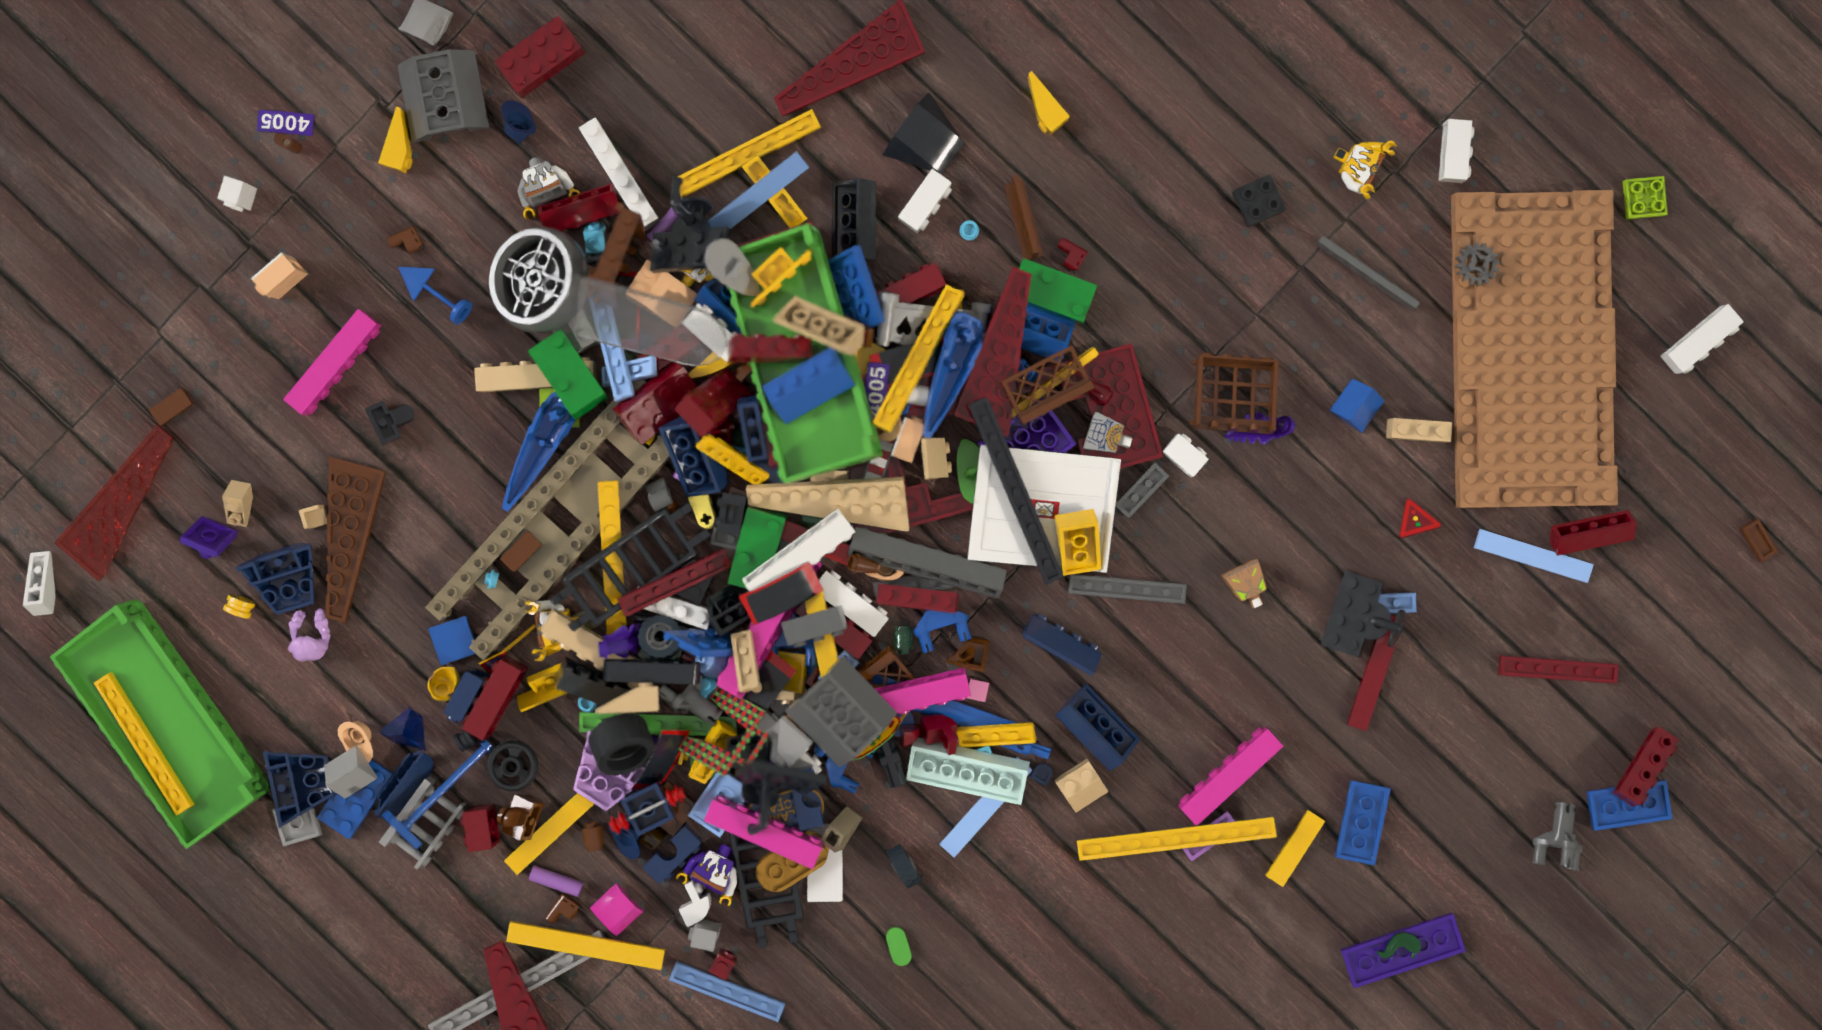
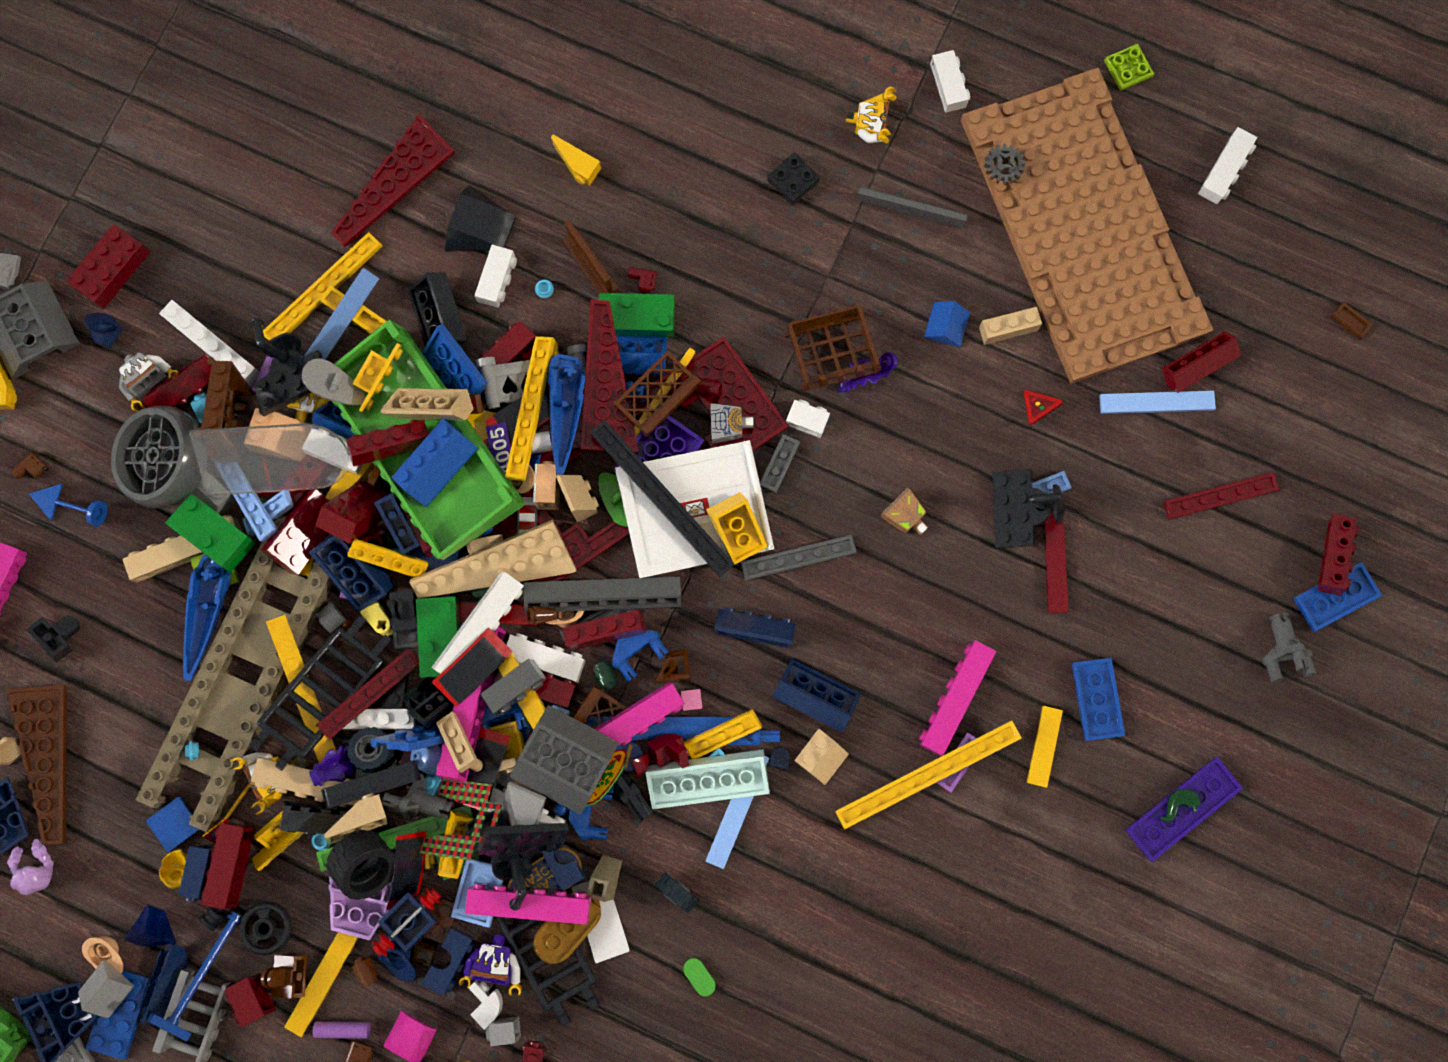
camera: 15 degrees left, 10 degrees down
(521, 551) = (214, 715): reddish brown tile -> none

